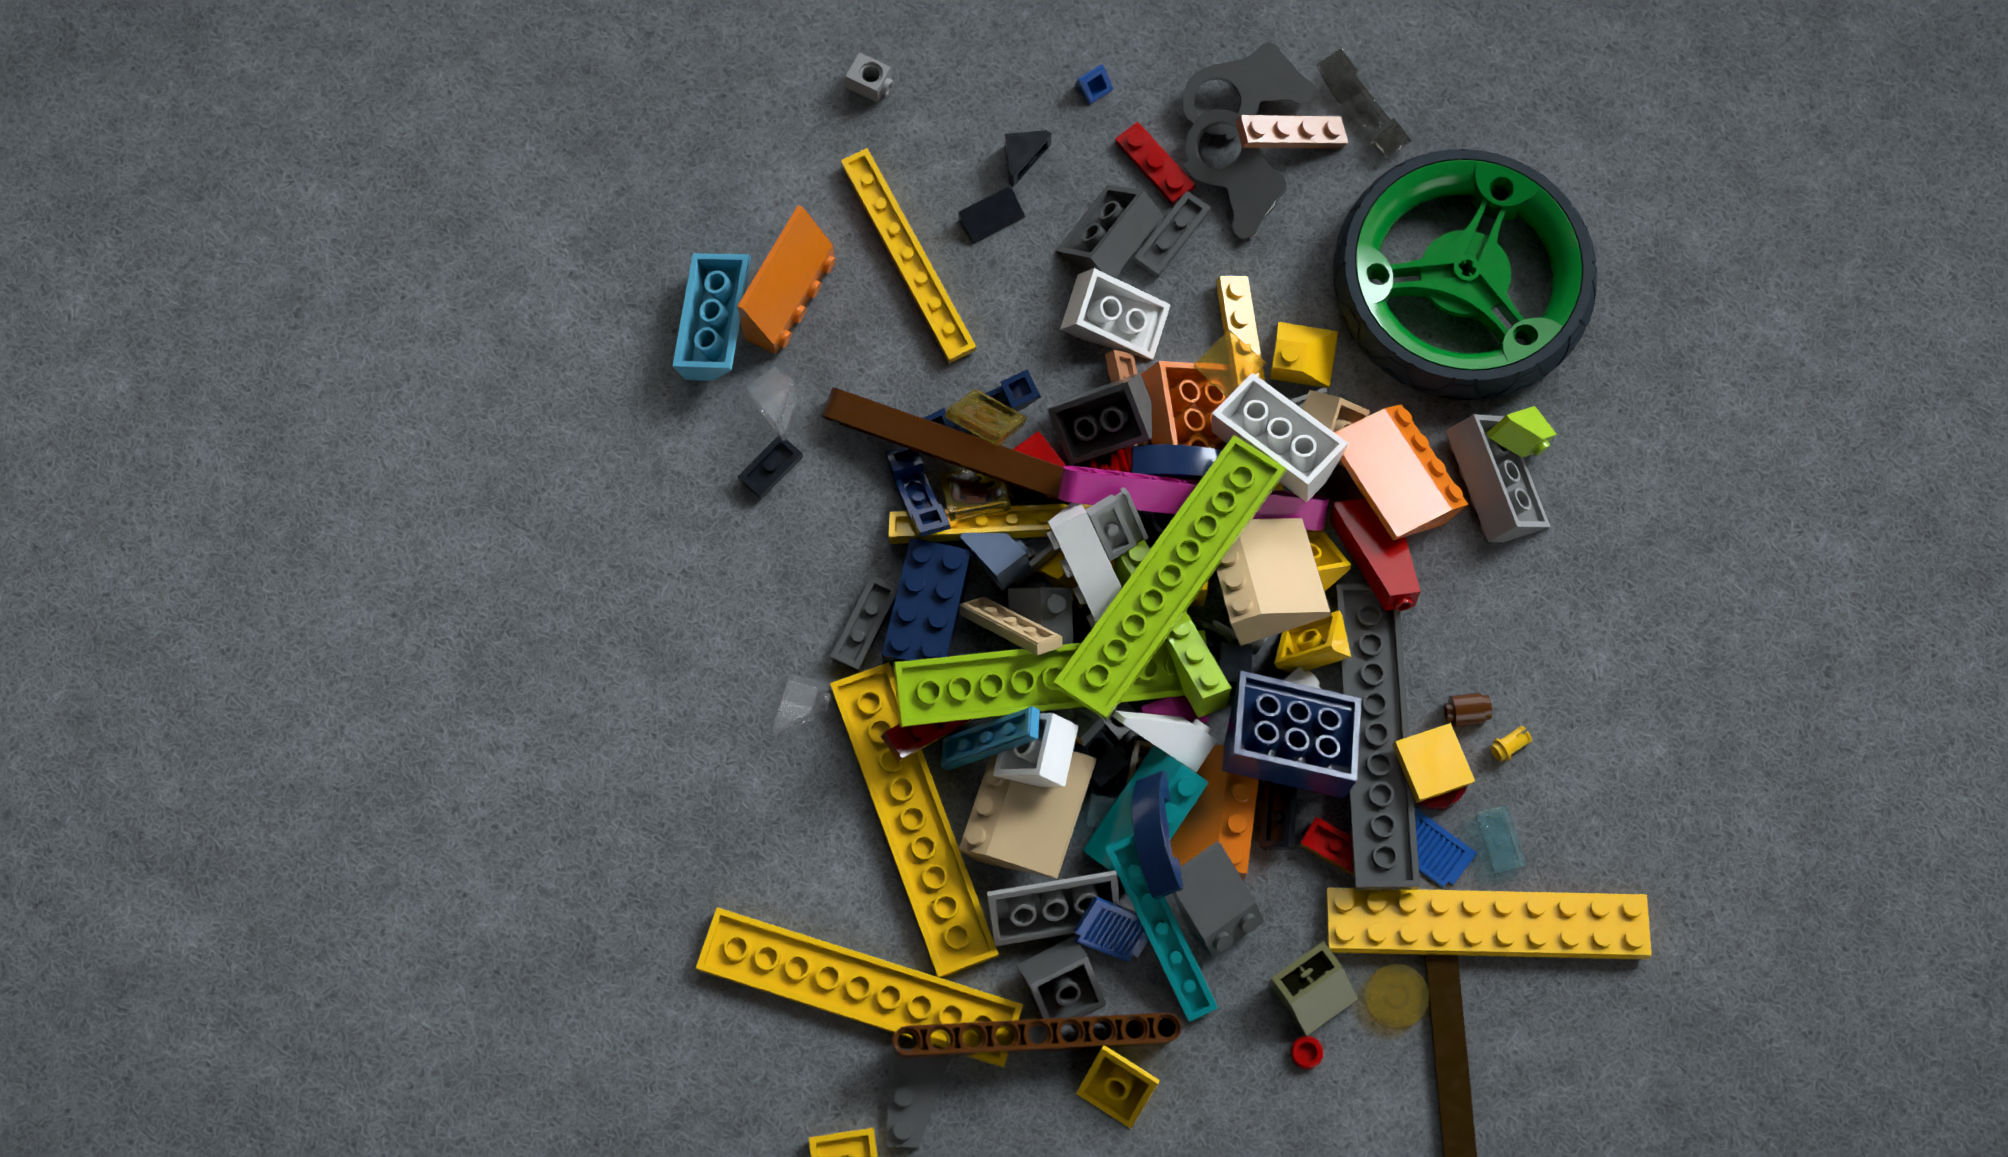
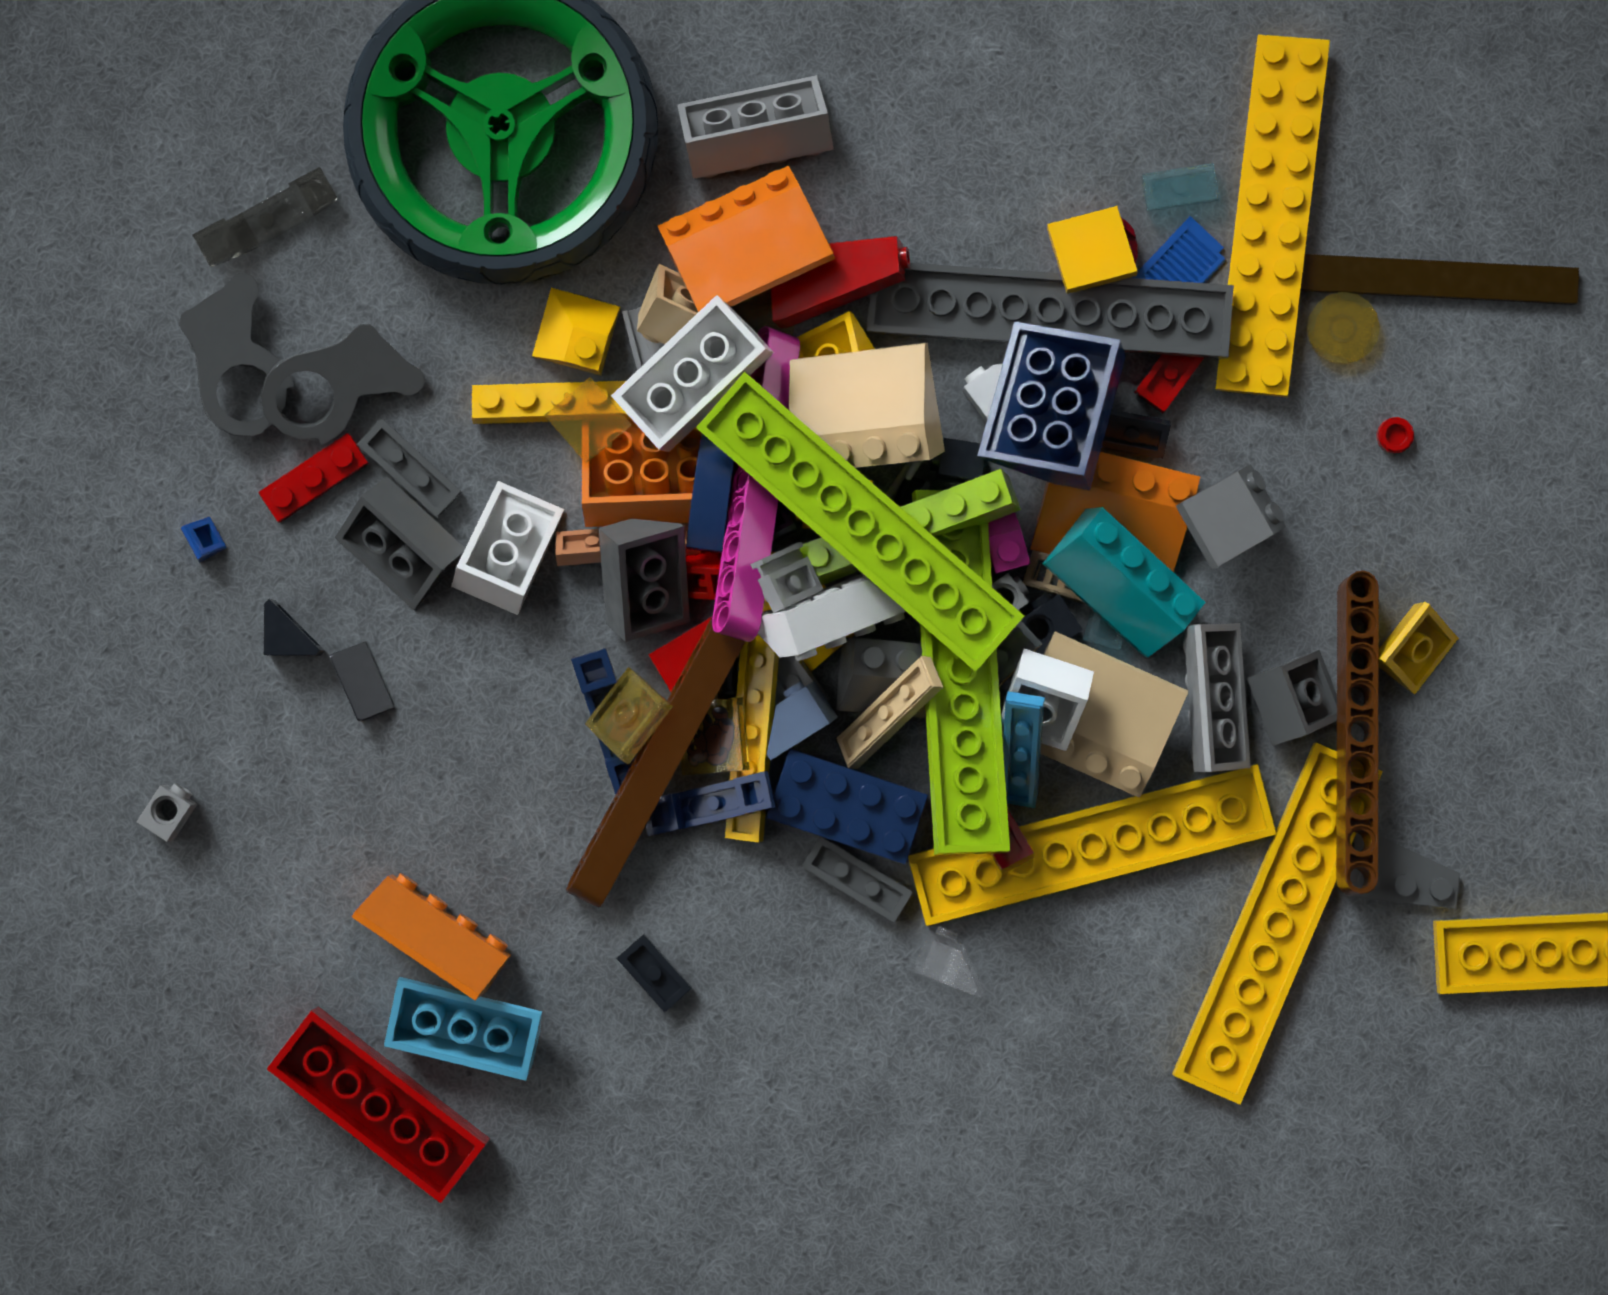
camera: 85 degrees left, 15 degrees up
(643, 258) = (378, 1103): none -> red brick
(774, 400) = (576, 960): clear slope -> none
(908, 256) = (402, 786): yellow plate -> none
(1111, 930) = (1246, 632): blue window -> none
(1152, 835) = (1160, 578): dark blue slope -> none
(1162, 932) = (1252, 580): teal plate -> none
(1173, 735) = (1037, 544): white slope -> none
(1291, 131) = (297, 309): plate -> none
(1313, 644) = (946, 363): yellow slope -> none
(1313, 988) = (1329, 419): olive slope -> none
(1468, 709) = (1027, 201): reddish brown brick -> none
(1511, 743) = (1071, 161): yellow pin -> none
(1523, 432) = (707, 87): lime slope -> none

